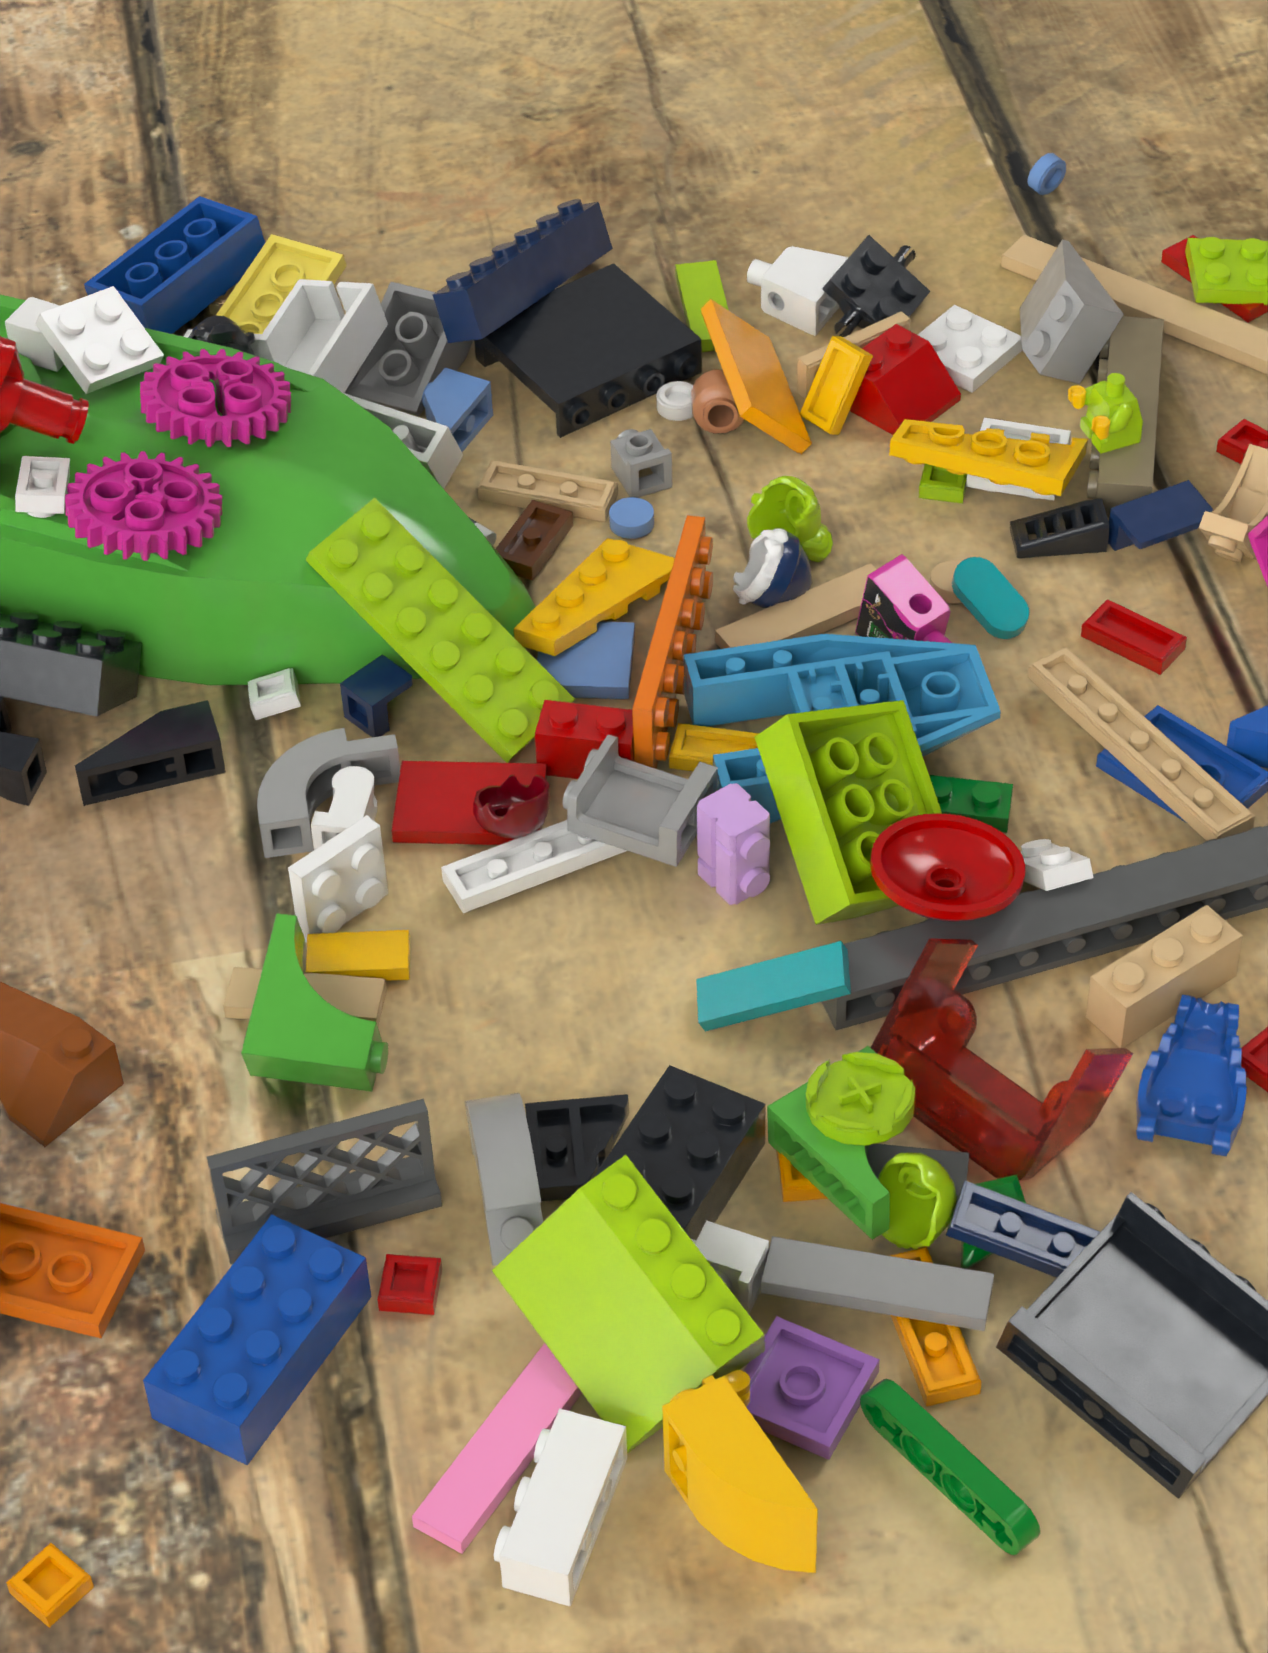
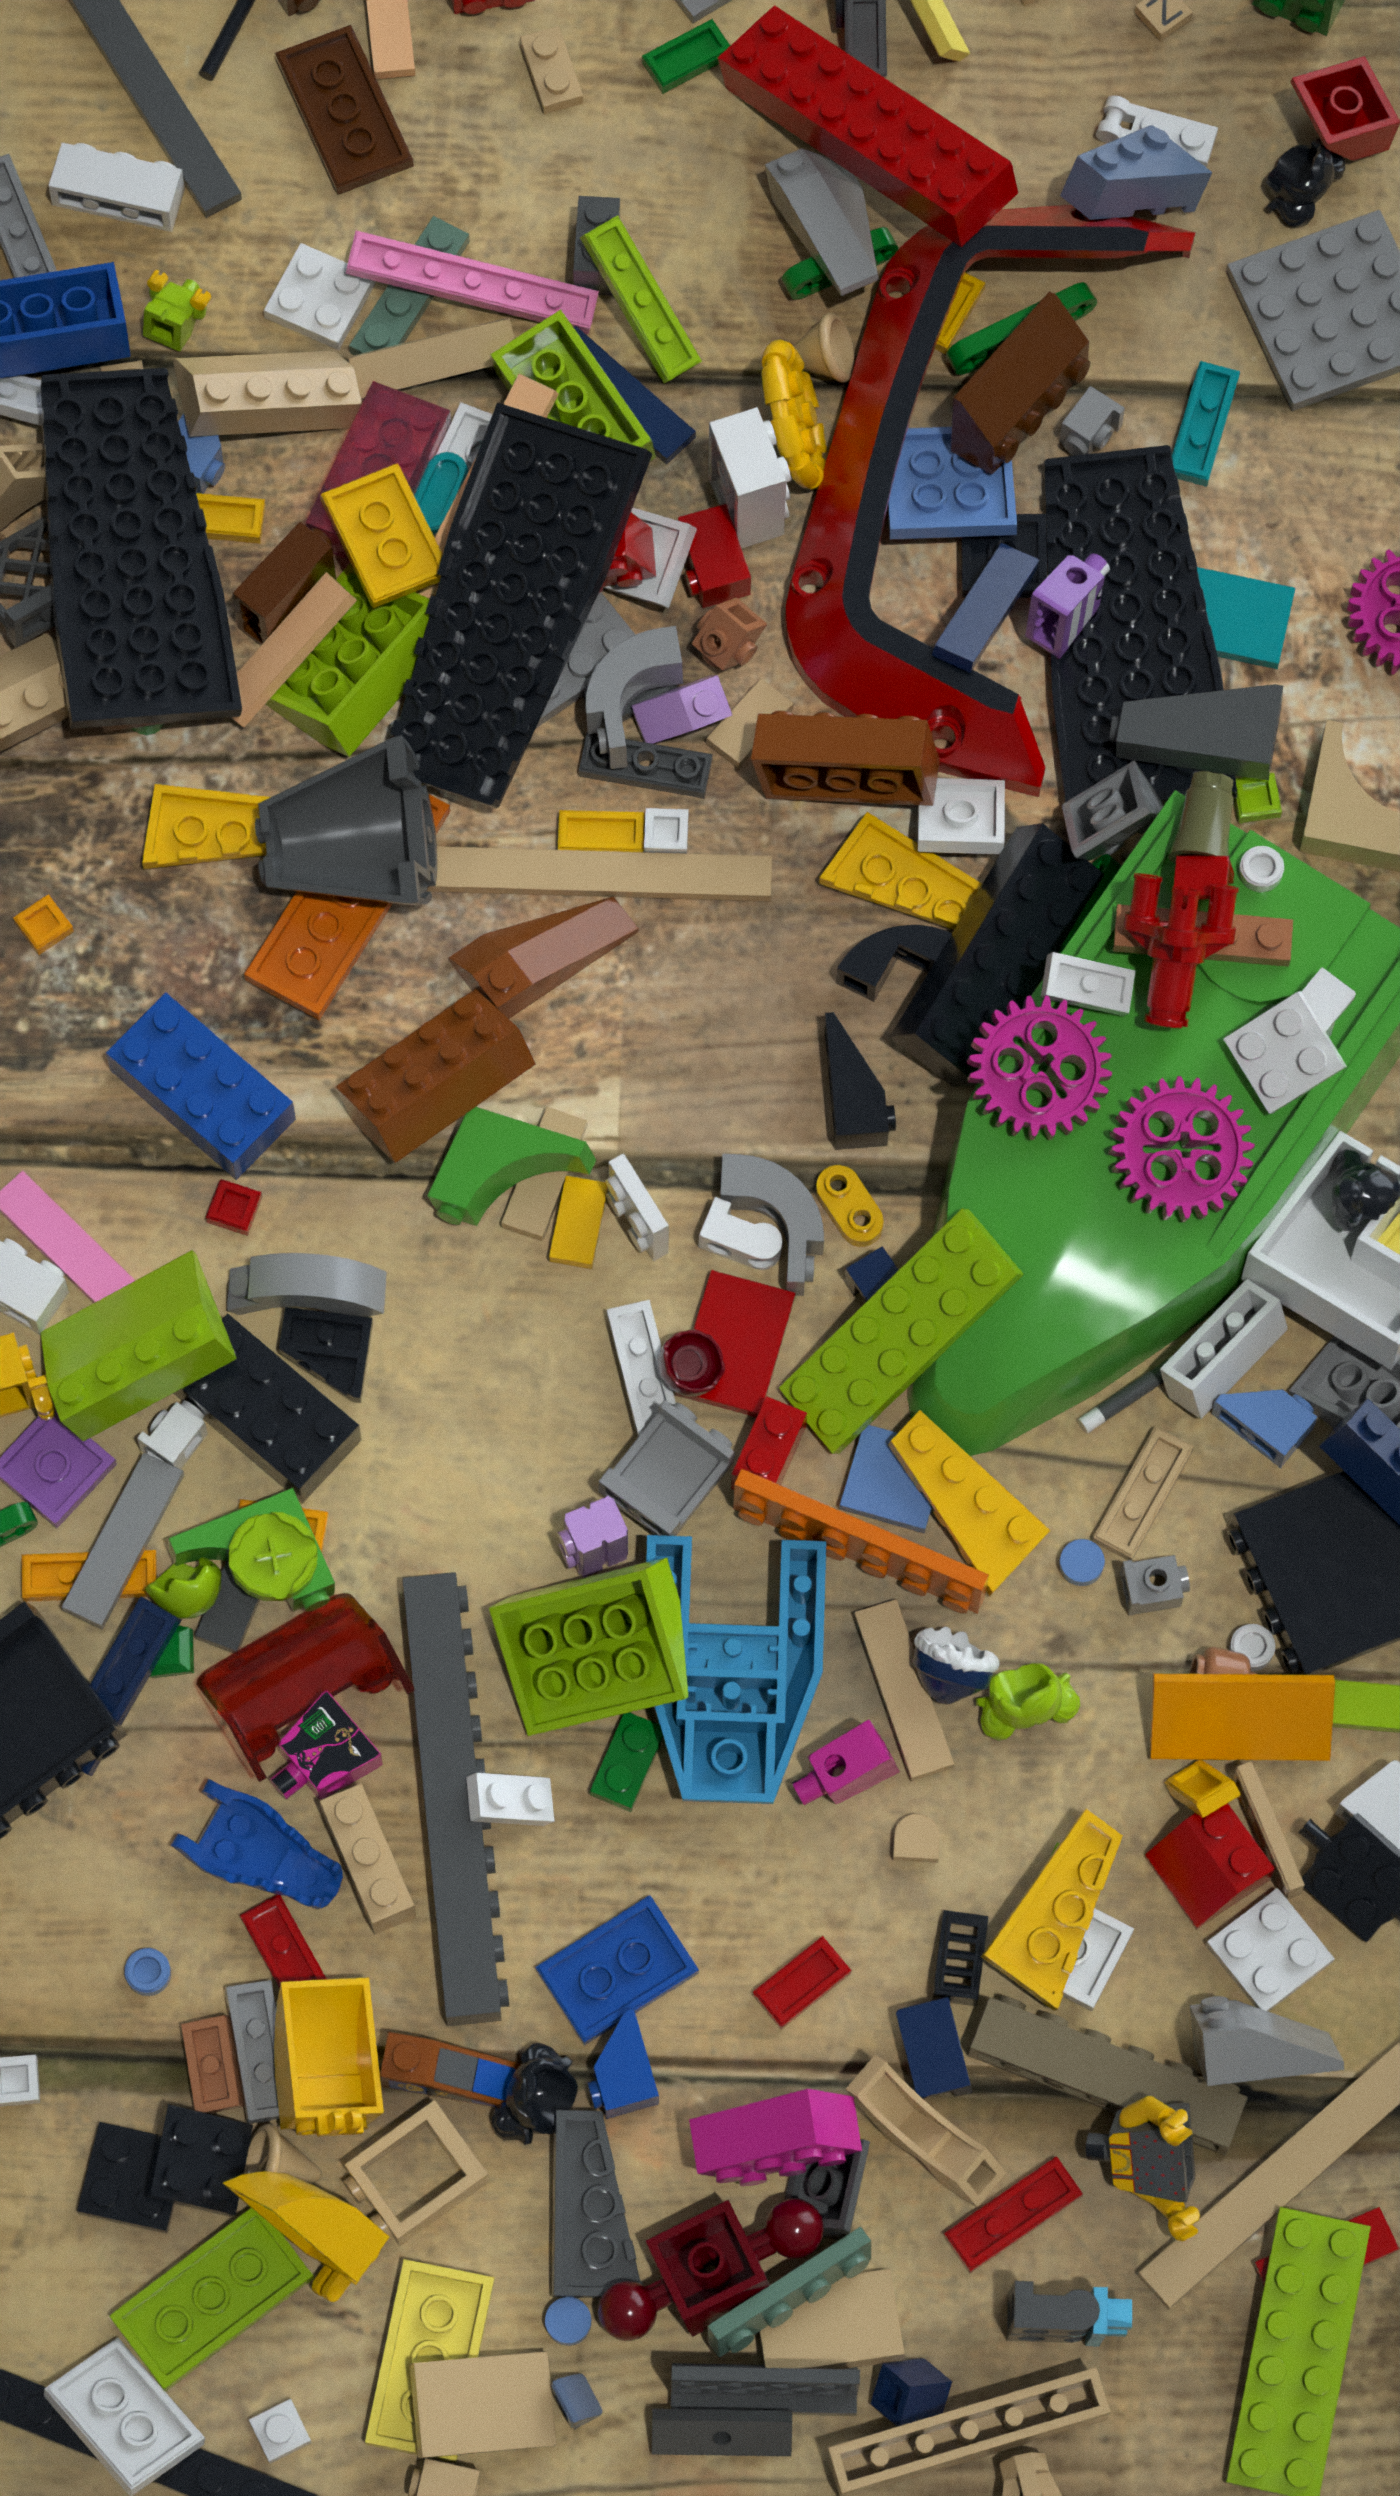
camera: 100 degrees right, 25 degrees up
(203, 1082) = (435, 1075): none -> dark orange brick
(274, 693) = (910, 1198): white tile -> none
(284, 735) = (848, 1204): none -> yellow plate
(338, 1199) = (322, 1154): dark grey fence -> none
(534, 538) = (1064, 1461): reddish brown plate -> none
(700, 743) = (745, 1571): yellow tile -> none
(773, 986) = (434, 1534): teal tile -> none
(947, 867) = (505, 1662): red dish -> none
(990, 597) = (873, 1858): teal tile -> none
(1048, 1036) = (324, 1751): none -> torso
(1111, 415) = (1062, 2027): lime piece -> none
(1140, 746) = (642, 1928): tan tile -> none
(1192, 358) = (1152, 2158): none -> torso

